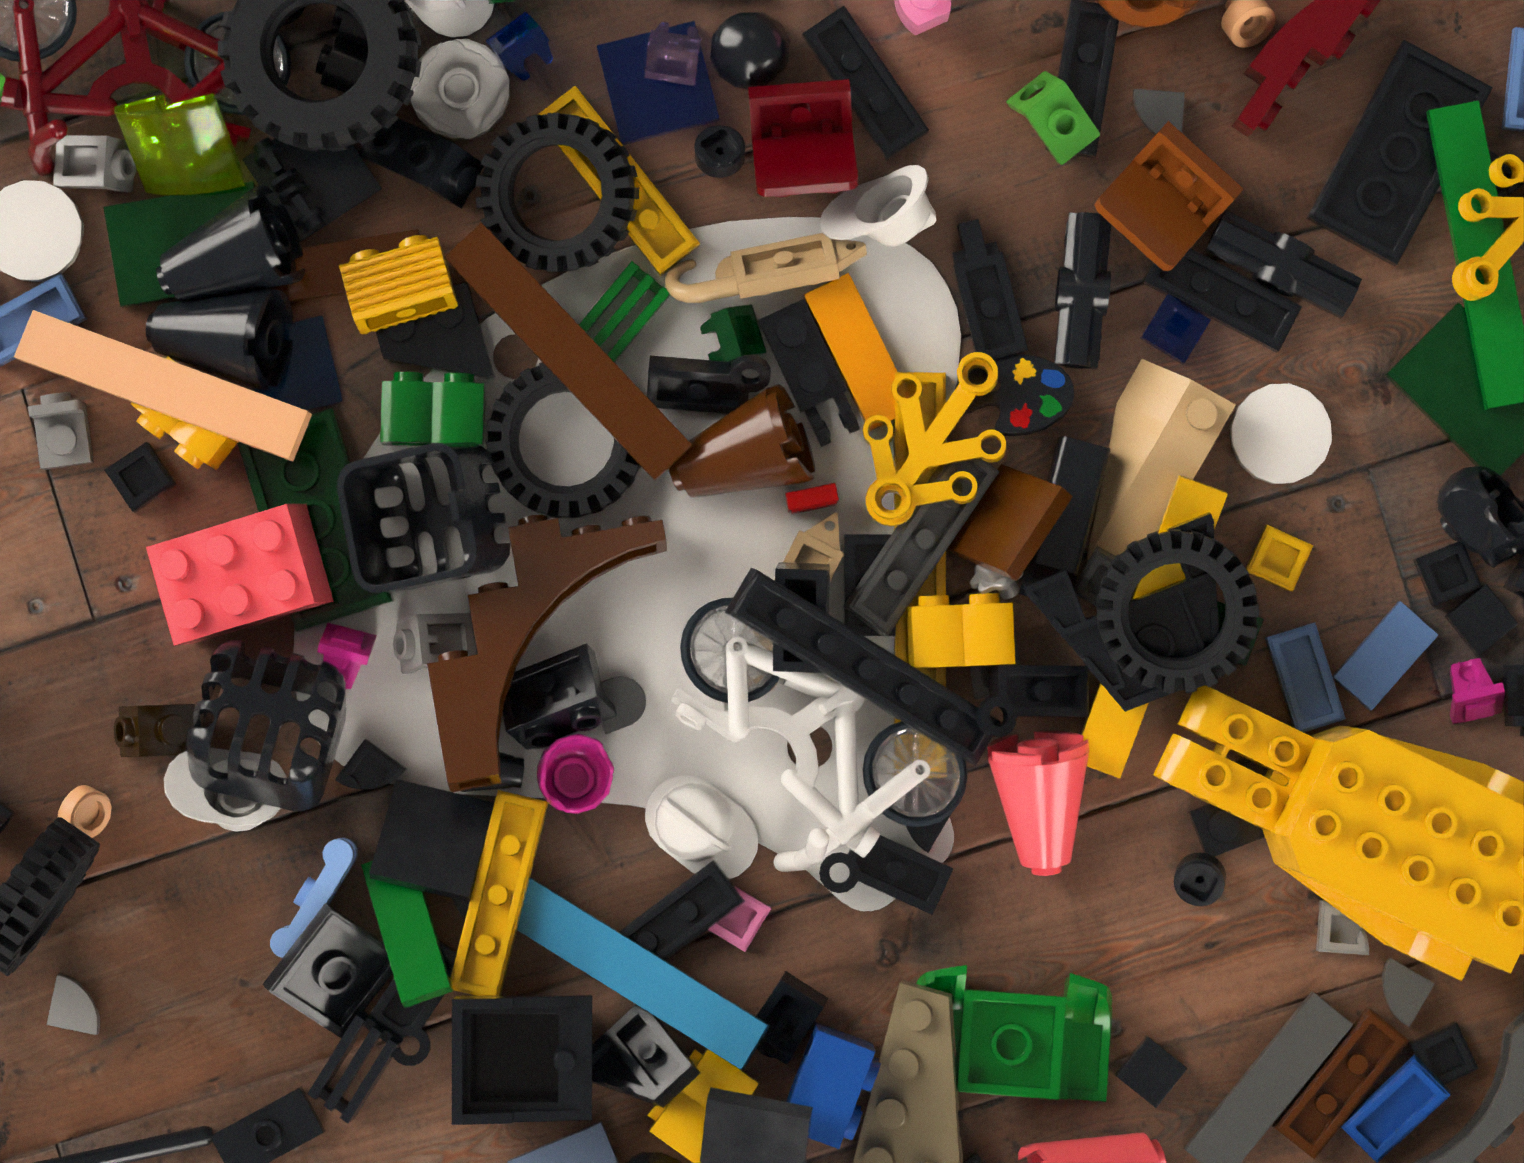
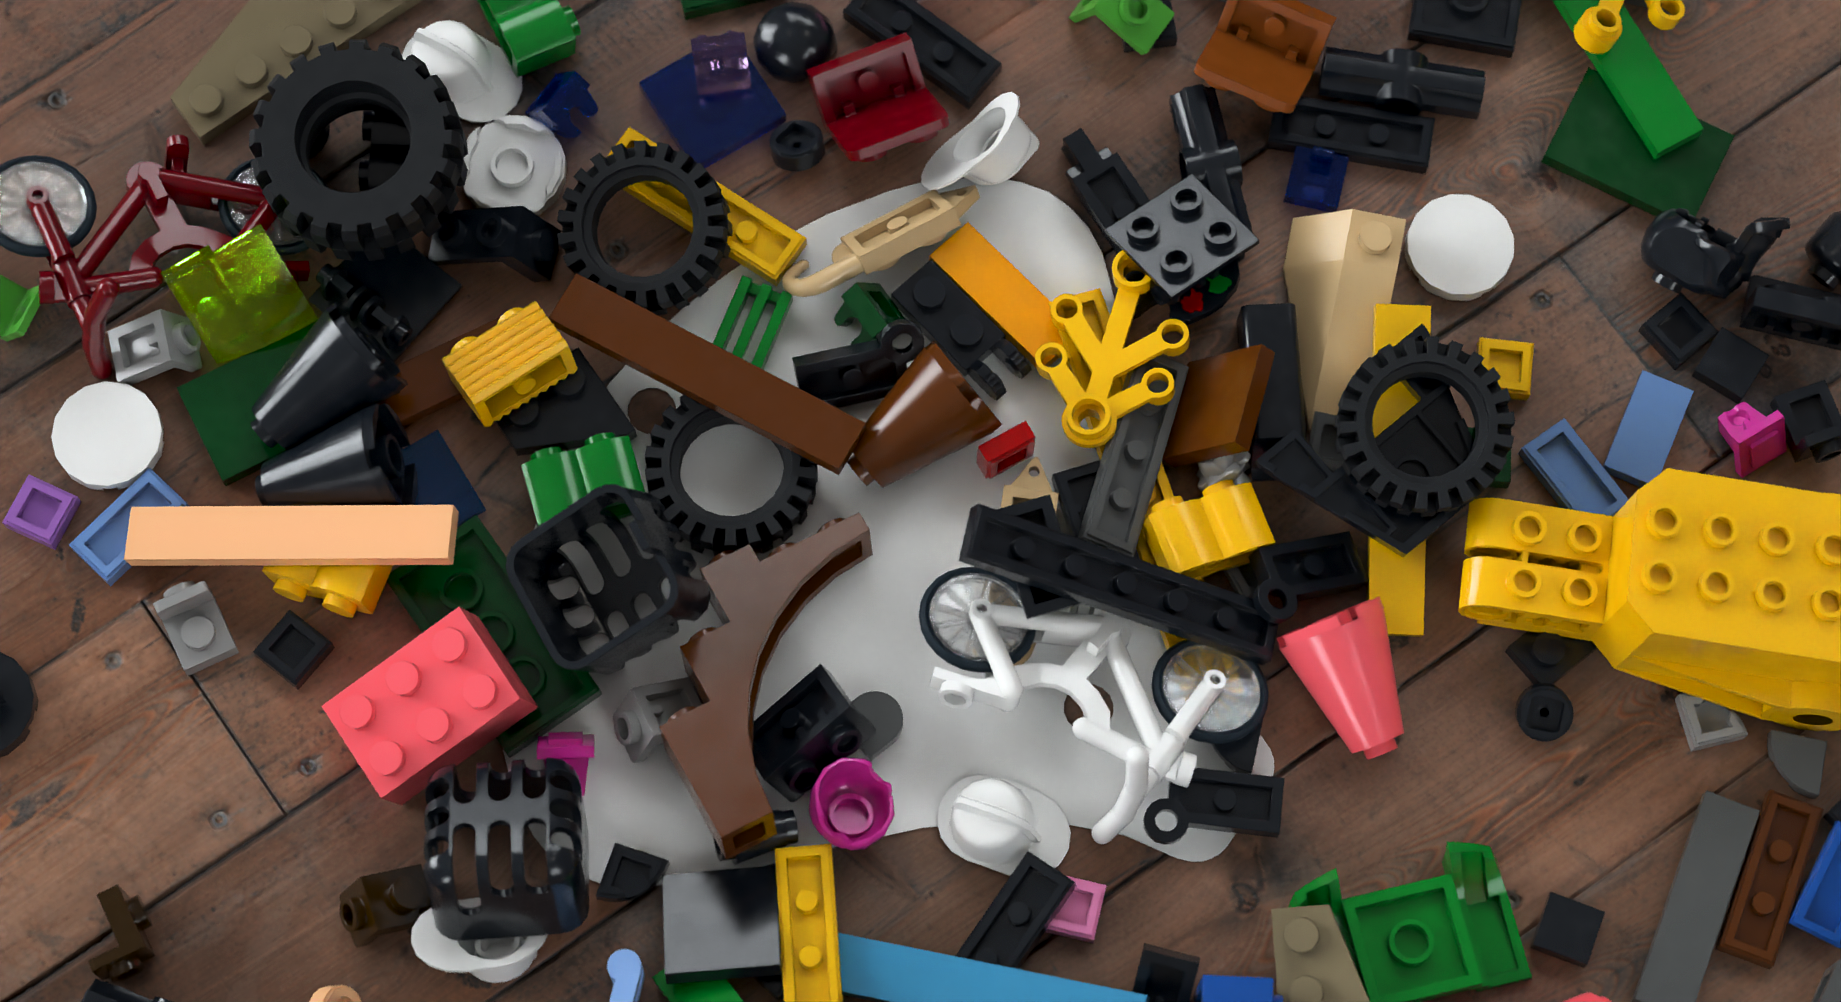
camera: 15 degrees left, 15 degrees down
(1029, 359) = (1182, 239): none -> hinge

